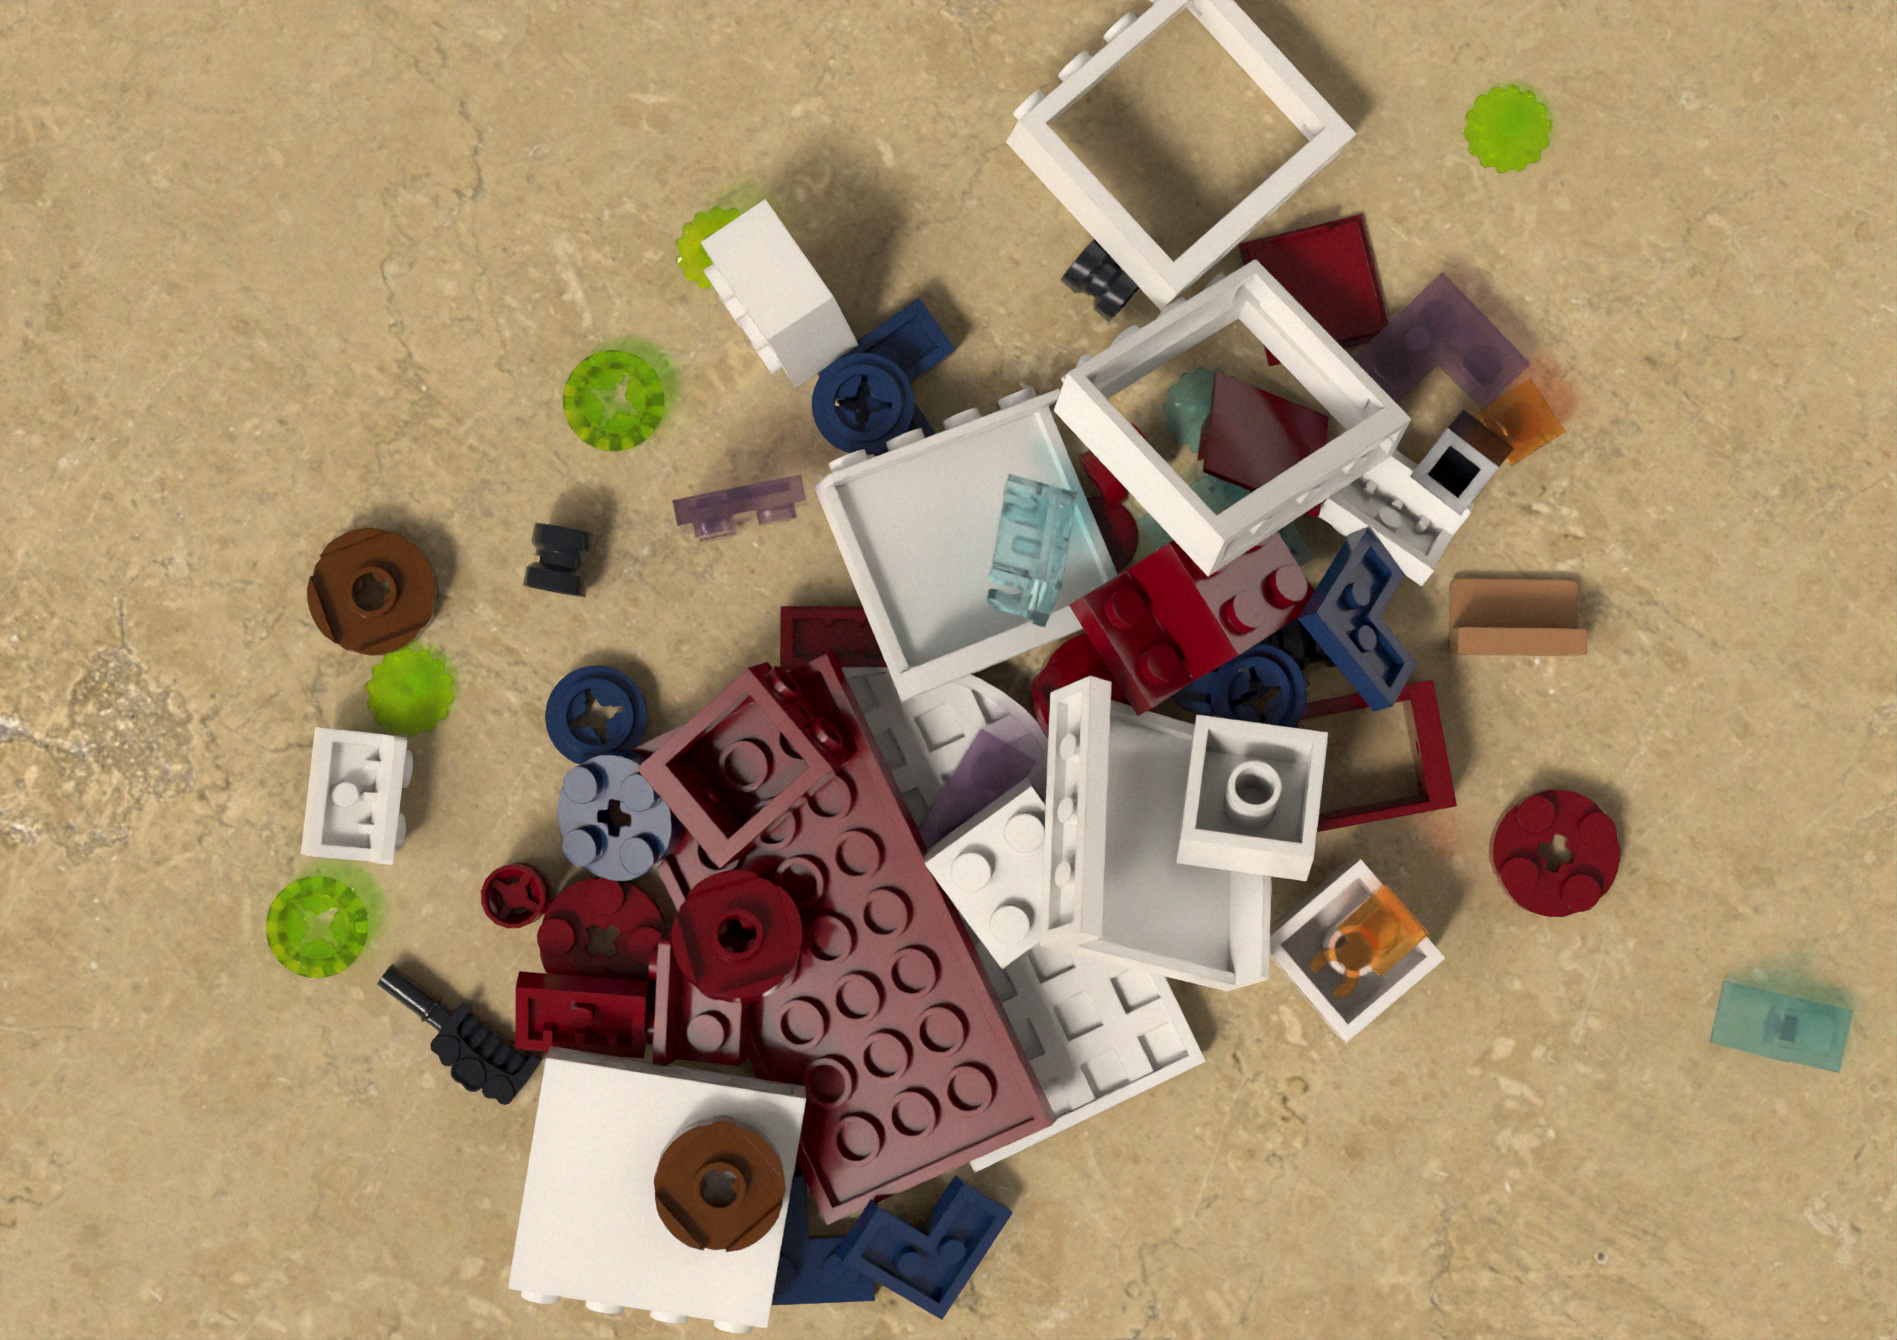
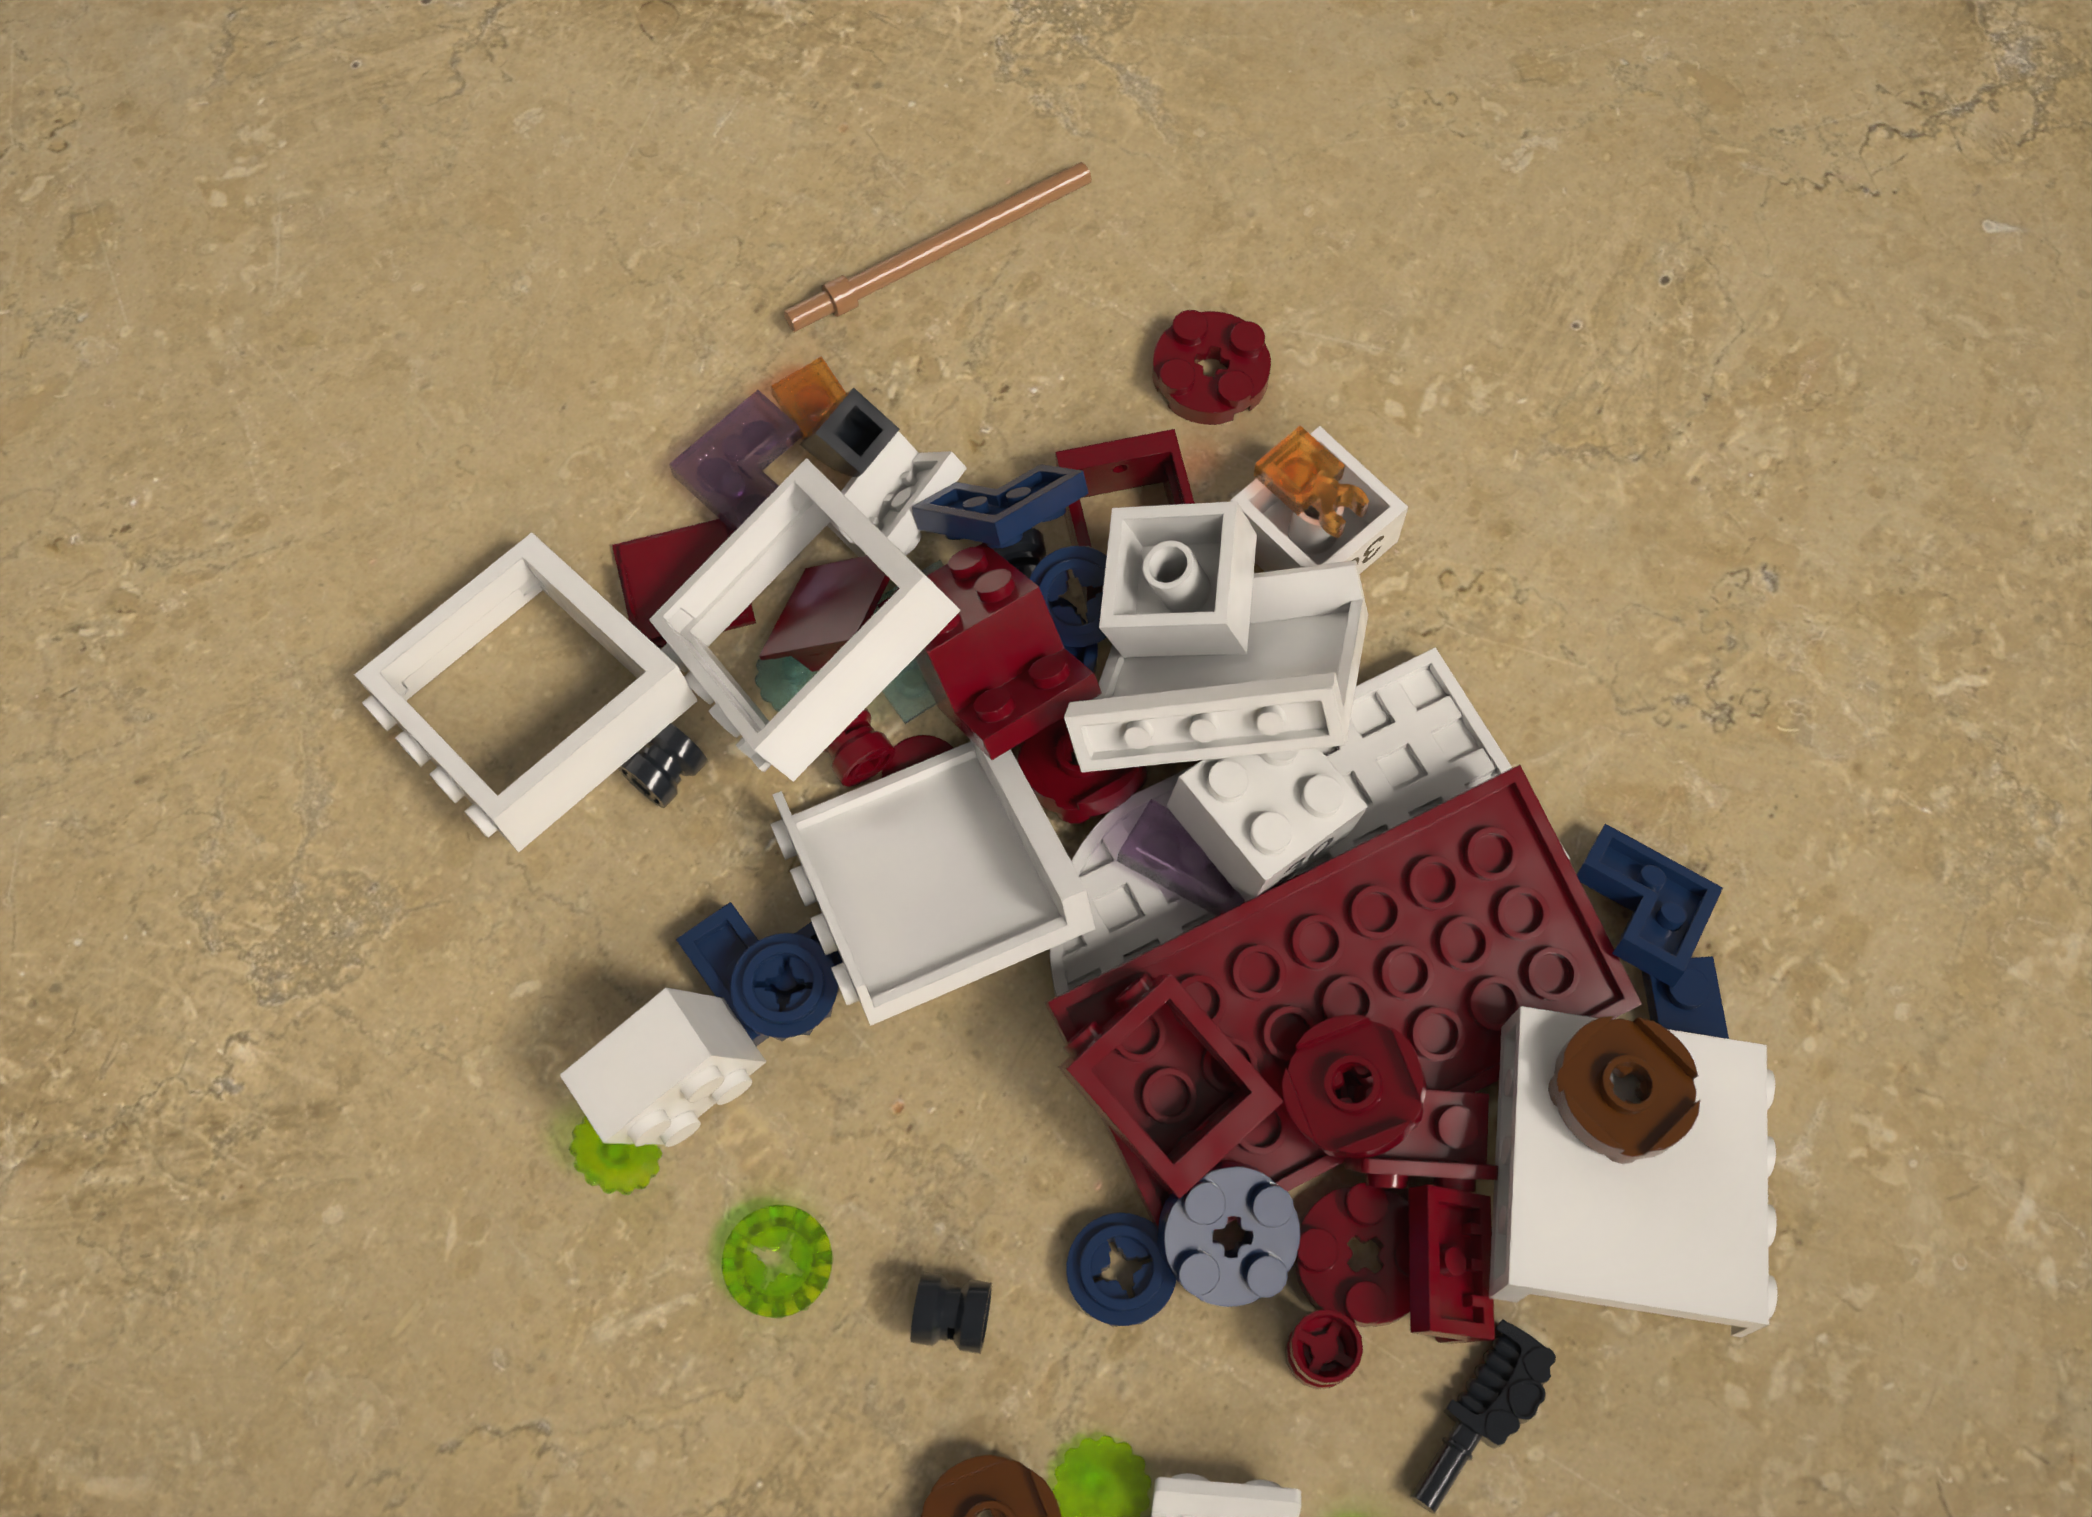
camera: 85 degrees left, 20 degrees down
(716, 513) = (899, 1127): plate -> none
(817, 630) = (1025, 1030): dark red plate -> none
(1031, 547) = (933, 796): clear light blue hinge -> none
(1507, 129) = (539, 425): clear neon green piece -> none
(1515, 618) = (996, 404): medium nougat panel -> none
(1657, 452) = (843, 294): none -> medium nougat bar
(1781, 1026) = (1354, 189): clear light blue slope -> none

